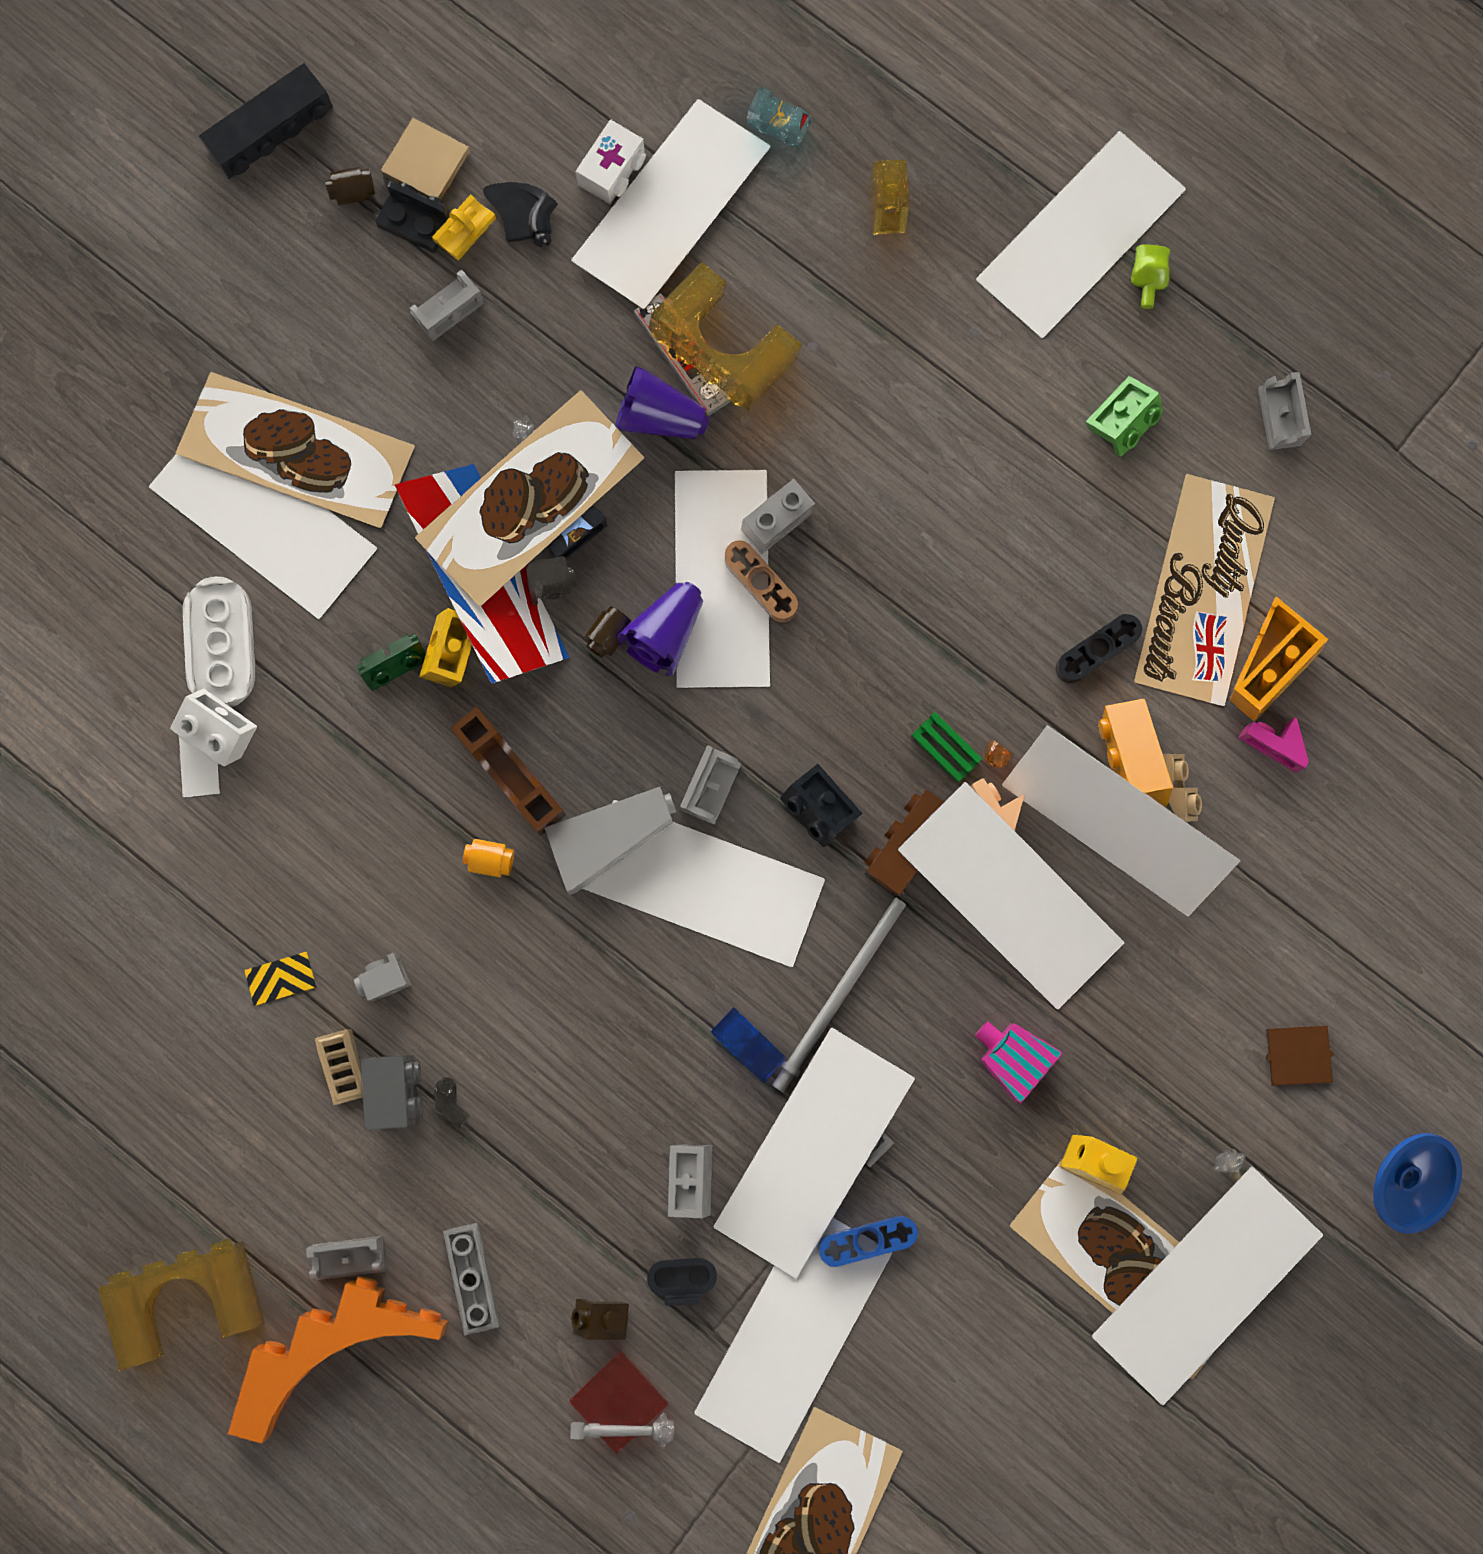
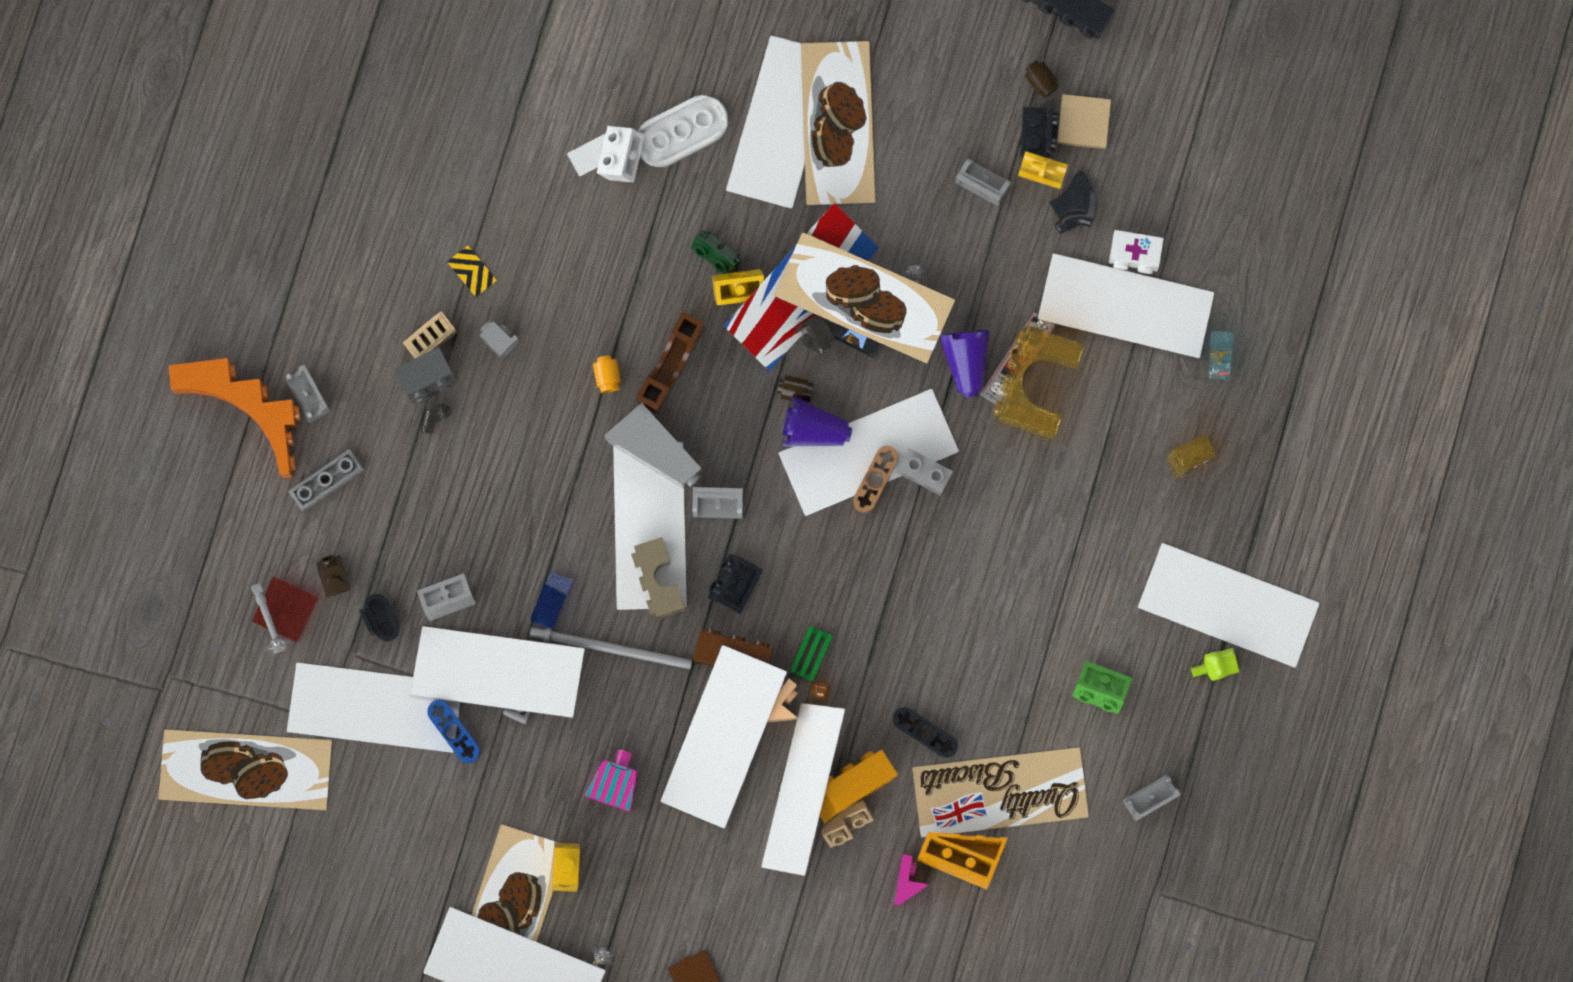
camera: 75 degrees right, 0 degrees up
(131, 1299) = (227, 267): clear yellow arch -> none
(747, 899) = (664, 600): none -> dark tan arch

